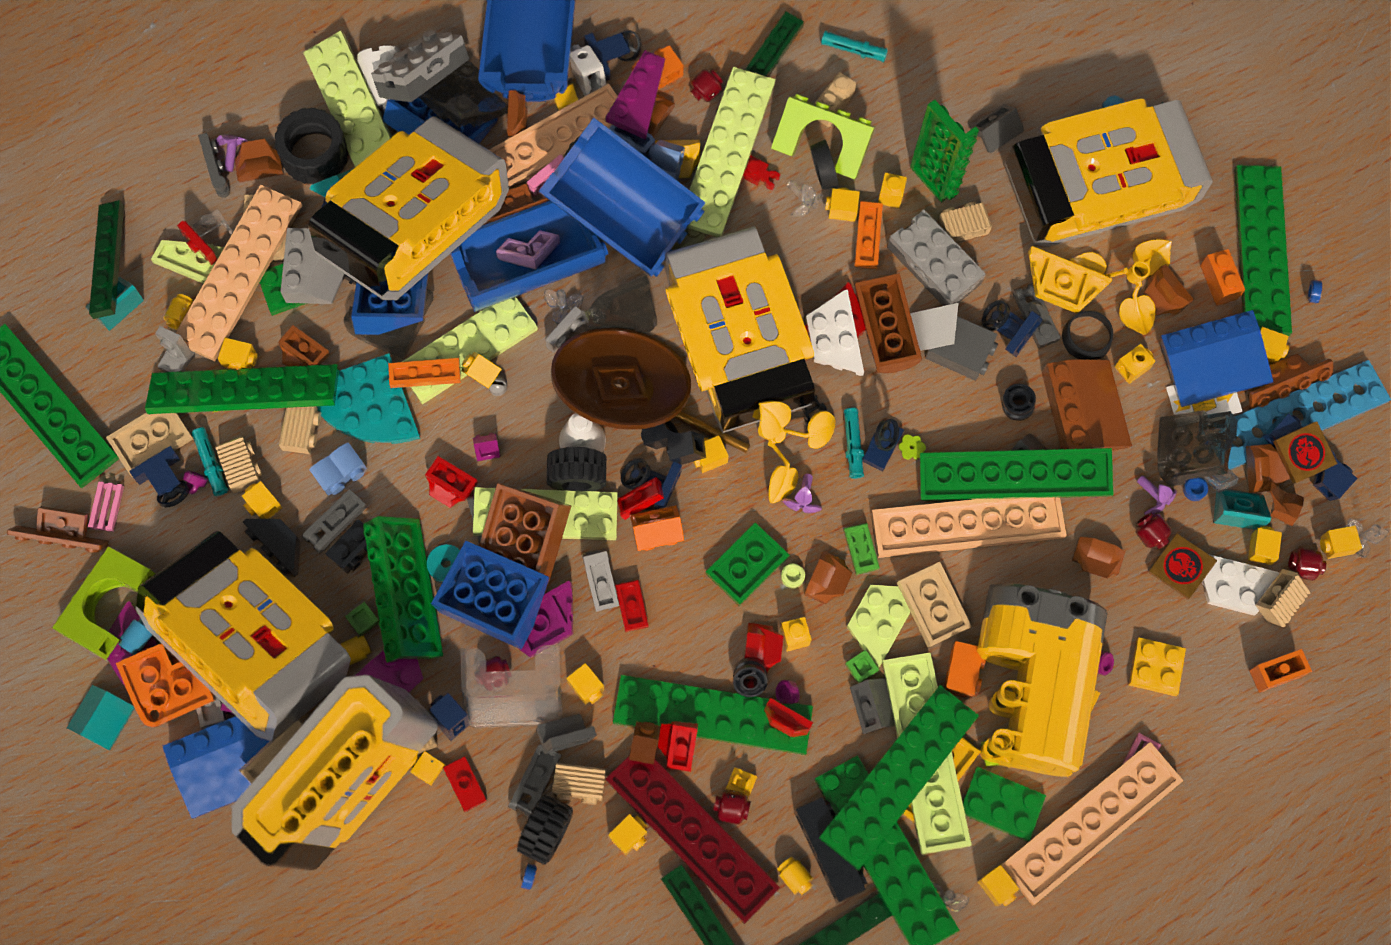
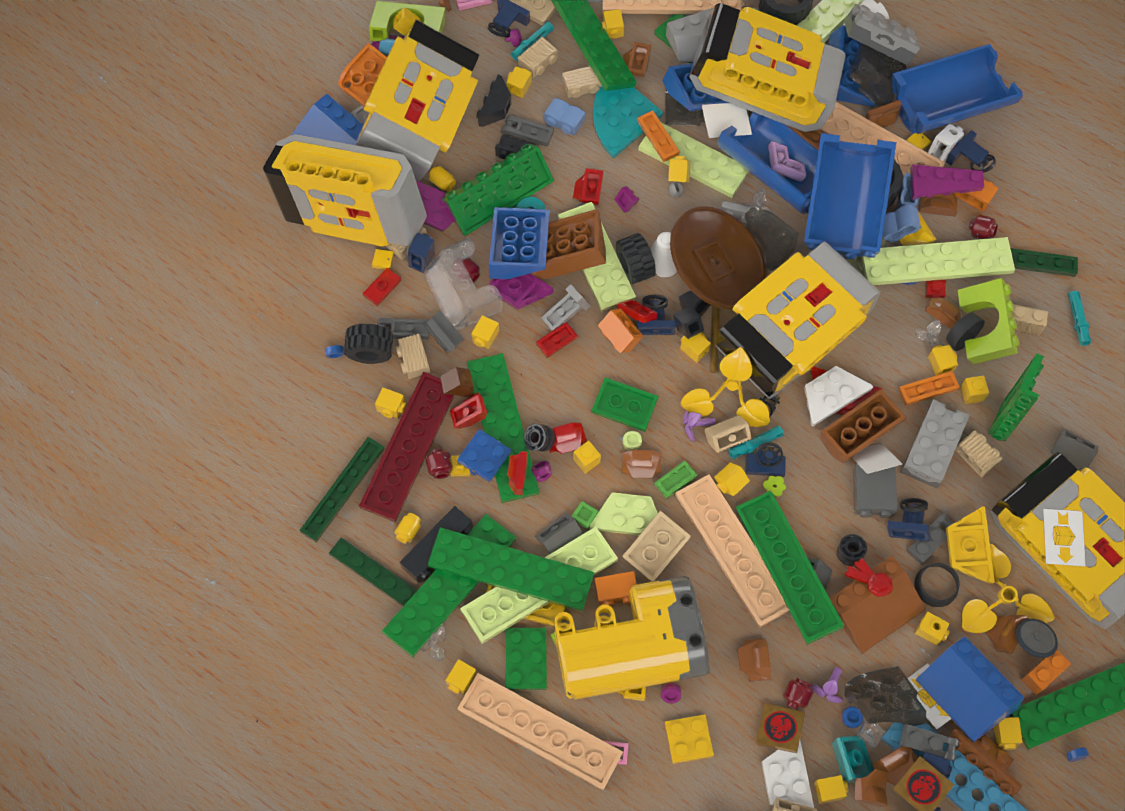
camera: 70 degrees right, 5 degrees down
(101, 717) = (332, 56): teal slope -> none
(108, 603) = (404, 20): none -> yellow brick
(362, 619) = (466, 173): bright green plate -> none
(447, 288) = (721, 116): none -> white sticker
(748, 749) = (484, 455): none -> blue plate
(790, 175) = (943, 311): none -> dark orange slope
(834, 467) = (728, 433): none -> tan brick
(889, 488) = (731, 479): none -> yellow brick
(1077, 392) = (878, 583): none -> red piece
(1111, 185) = (1064, 537): none -> white sticker
(1190, 267) = (1036, 638): none -> dark grey wheel
(1258, 425) = (928, 742): none -> dark grey plate

